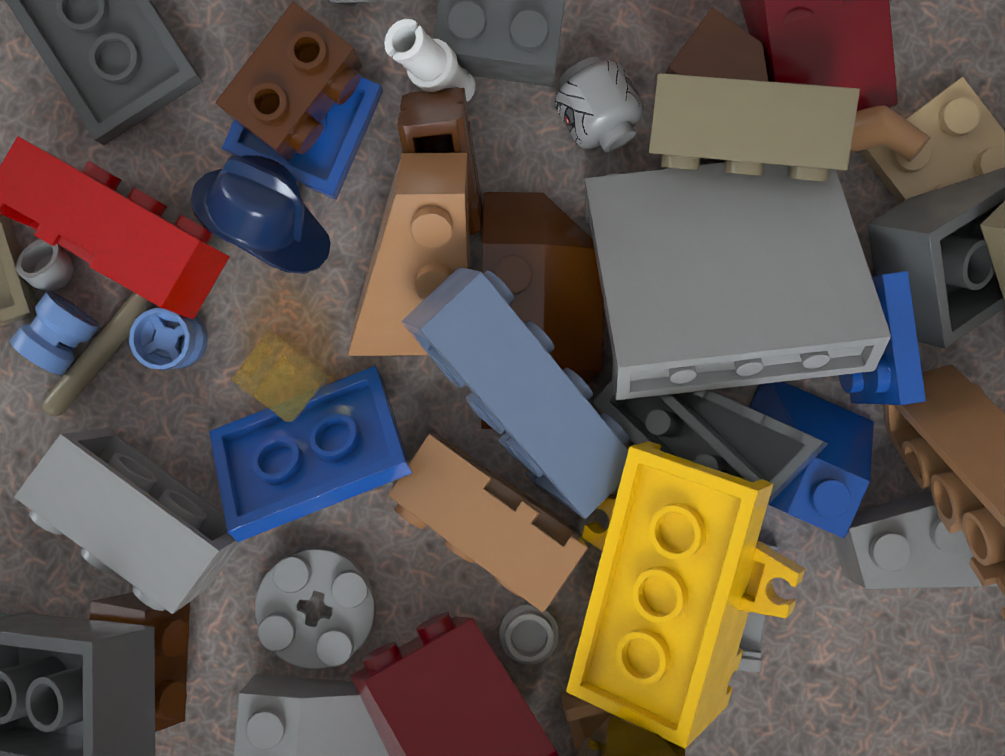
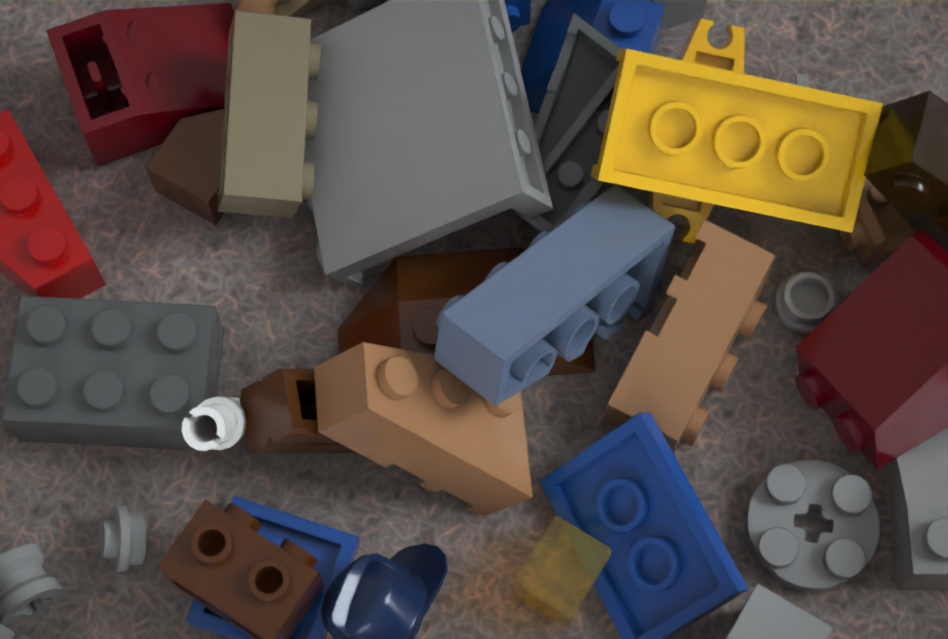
camera: 95 degrees left, 20 degrees down
(598, 104) = (245, 274): light grey head -> none

